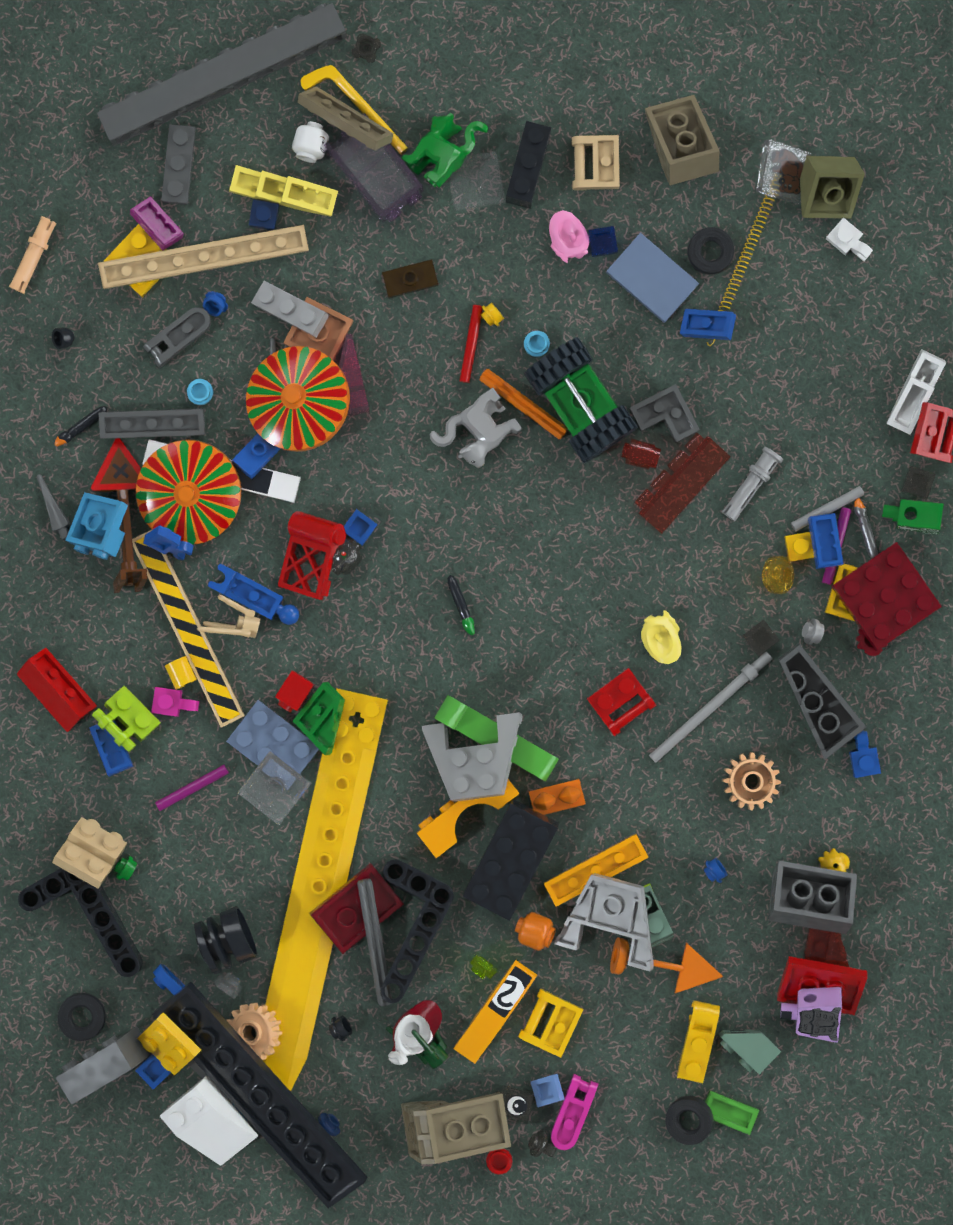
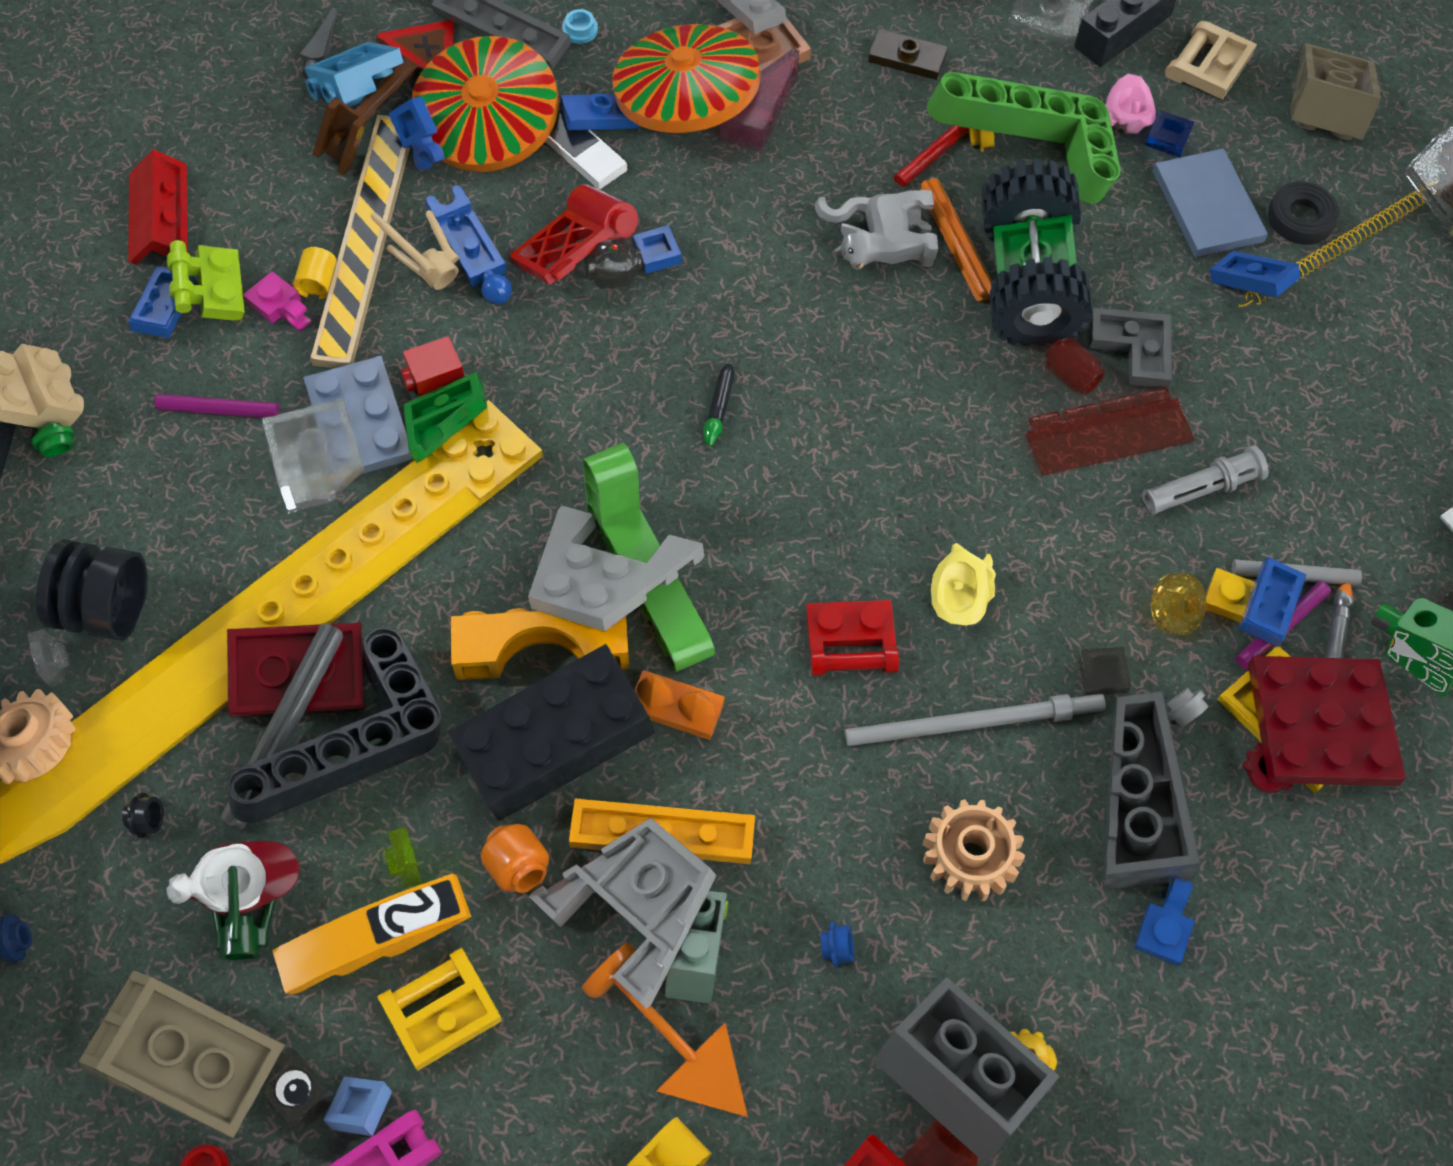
camera: 30 degrees right, 25 degrees down
(522, 292) = (1035, 113): none -> bright green beam

